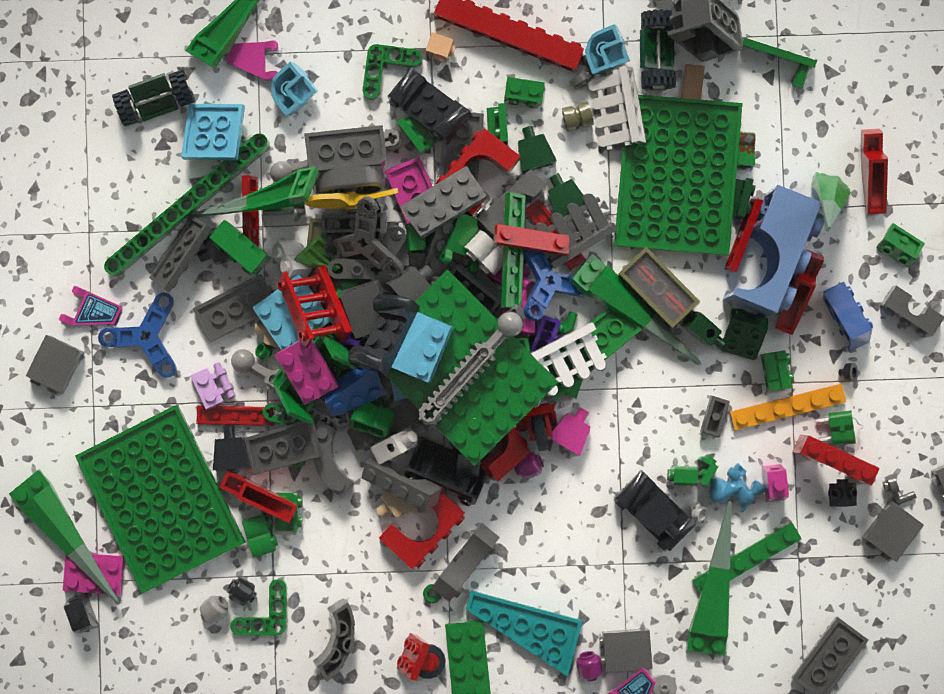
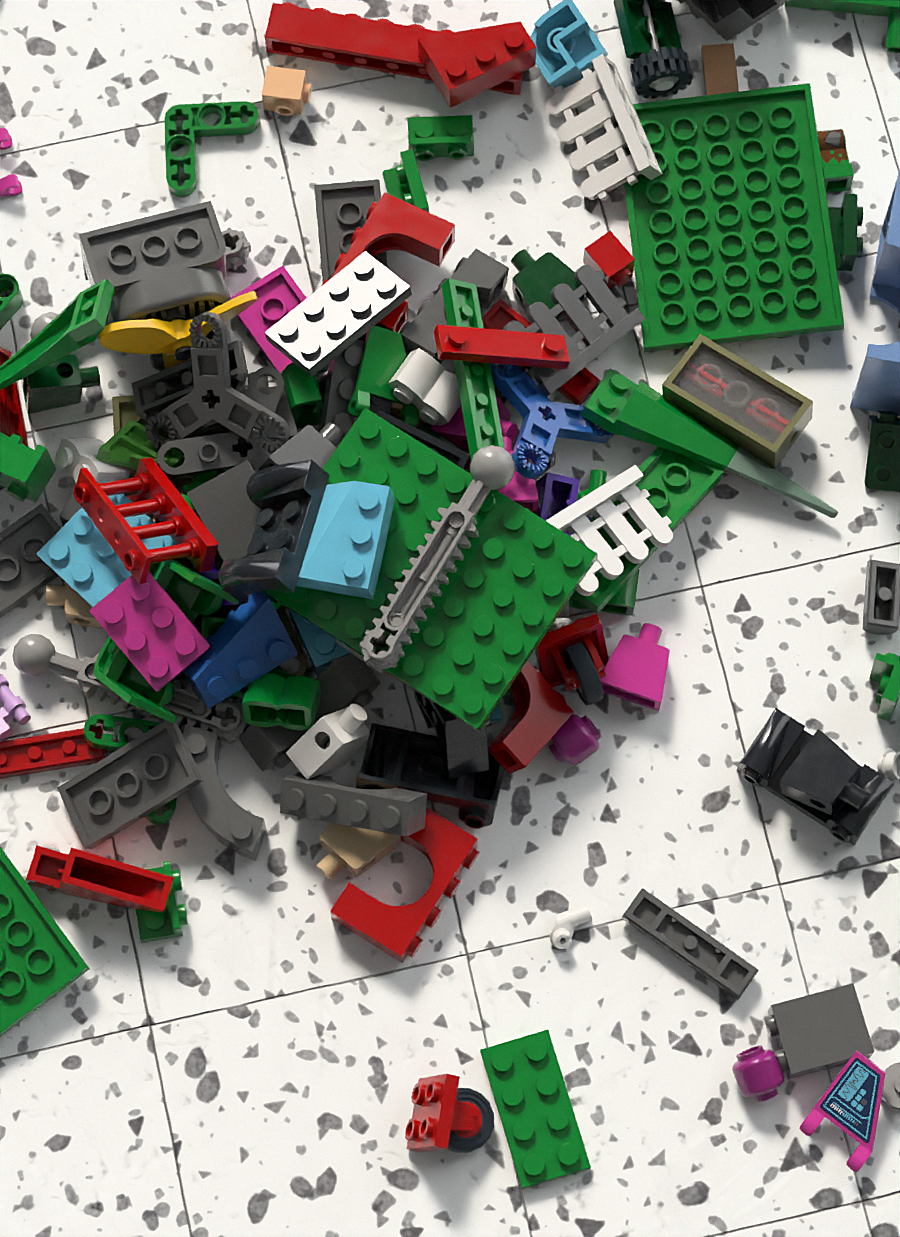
camera: 15 degrees left, 15 degrees down
(214, 609) = (51, 1101): light grey head -> none
(230, 451) = (36, 815): black torso -> none
(241, 591) = (96, 1059): black head -> none
(259, 535) = (113, 952): green brick -> none
(263, 351) = (68, 633): green plate -> none
(267, 621) = (154, 1107): green beam -> none
(292, 88) = (46, 196): medium azure brick -> none
(340, 641) = (294, 1115): dark grey brick -> none
(416, 134) = (269, 232): green bracket -> none
(427, 597) = (442, 989): green plate -> none
(428, 106) = (283, 181): black piece -> none
(465, 562) = (487, 943): dark grey brick -> none
(503, 565) = (565, 924): none -> white arm
(534, 151) = (479, 222): dark green torso -> none
(535, 629) = (655, 1029): teal wing -> none
(552, 55) = (476, 59): none -> red wedge
(568, 589) = (690, 944): none -> dark grey plate
(577, 116) = (536, 156): olive wheel -> none
(580, 80) = (531, 99): dark grey plate -> none
(605, 190) = (612, 258): none -> red brick
(683, 475) = (850, 701): green brick -> none
(698, 324) = (828, 454): dark green torso -> none
(743, 236) = (861, 294): red tile -> none

